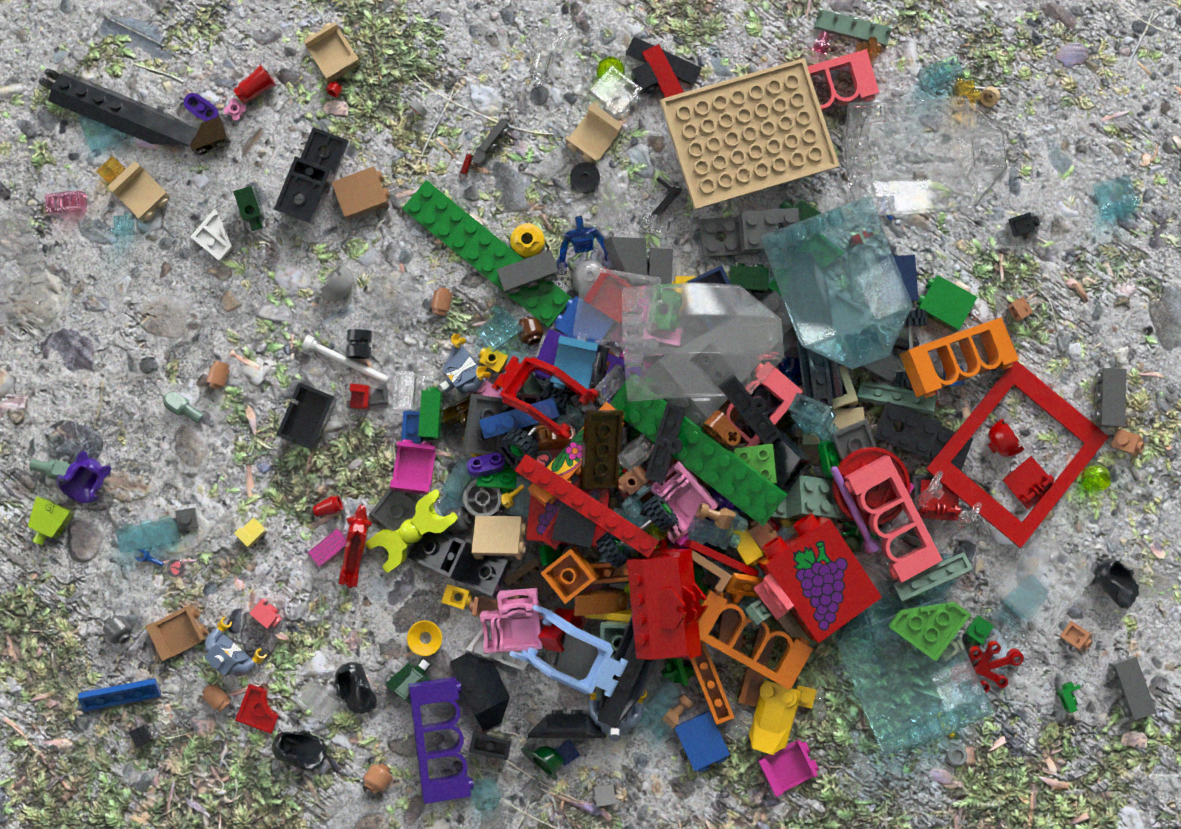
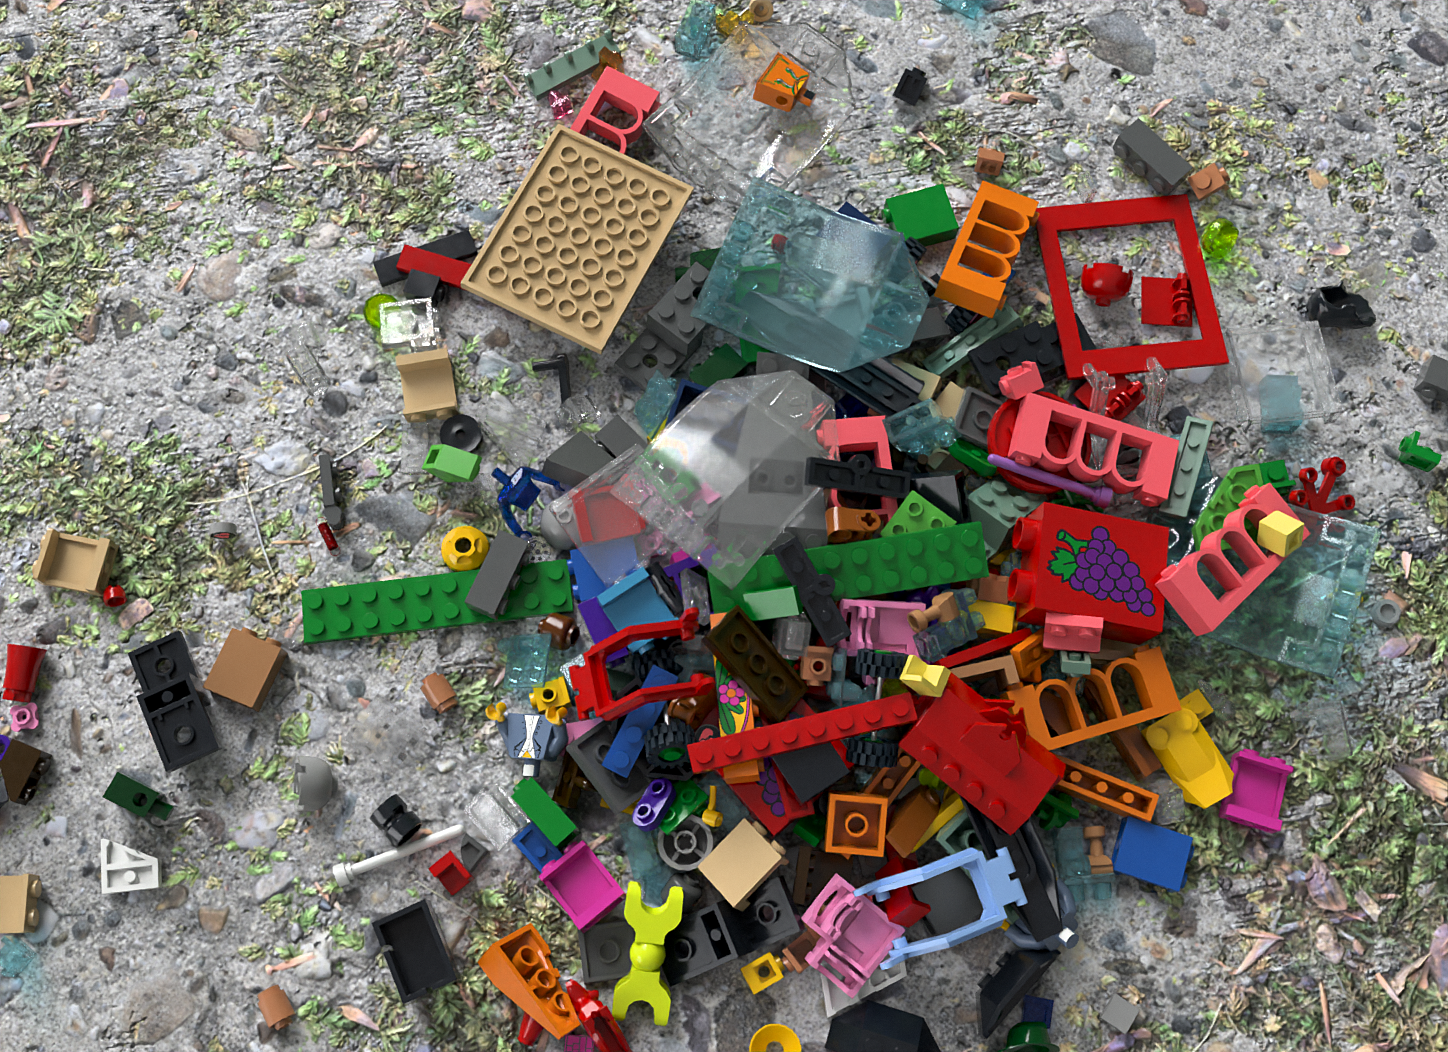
camera: 50 degrees left, 10 degrees down
(345, 482) = (524, 973): none -> orange wedge
(563, 190) = (452, 464): none -> bright green slope
(640, 428) = (773, 603): none -> tile
(673, 541) = (924, 678): none -> light yellow panel
(698, 263) = (655, 403): none -> clear light blue hinge
(894, 445) = (1021, 380): none -> coral brick
(935, 659) = (1280, 533): none -> light yellow panel
(942, 655) = (1188, 592): none -> coral fence
(951, 155) = (783, 85): none -> orange torso
(1077, 636) = (1362, 392): nougat bracket -> none

